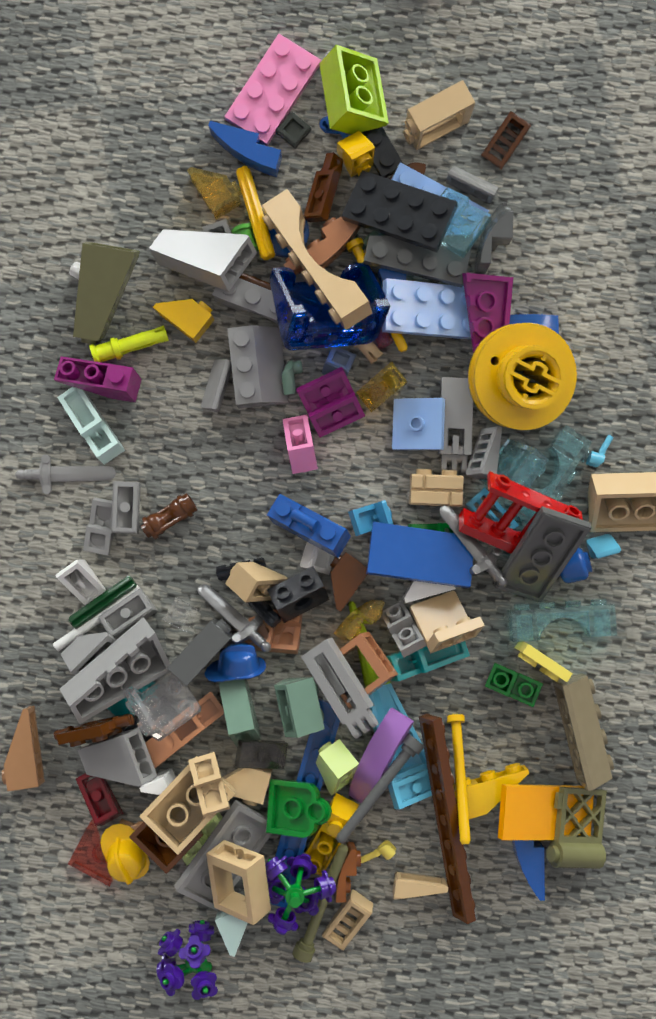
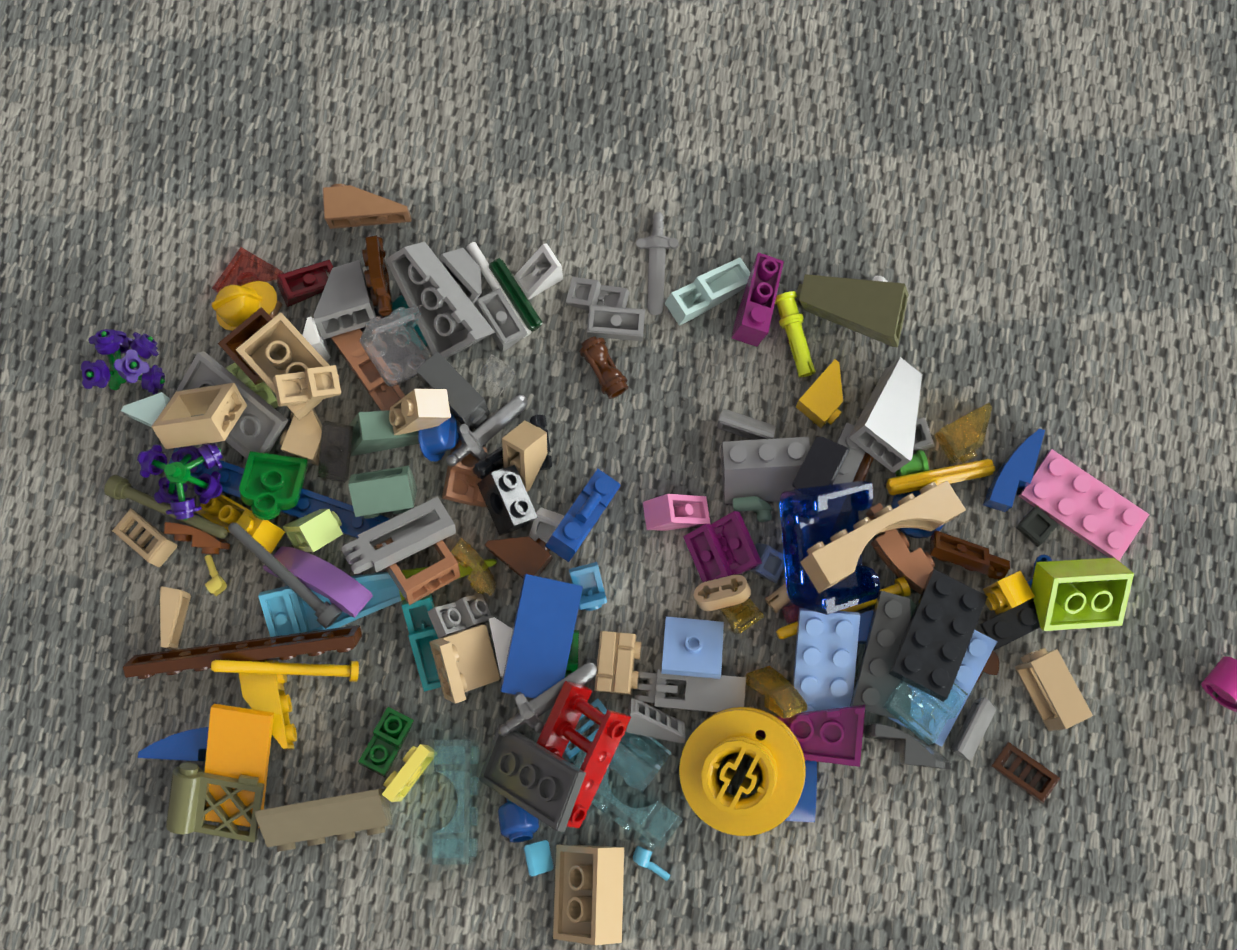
camera: 90 degrees right, 10 degrees down
(225, 678) = (419, 411): none -> tan slope
(254, 315) = (821, 464): none -> black slope
(370, 400) = (722, 592): none -> tan beam
(454, 347) = (779, 693): none -> clear yellow slope

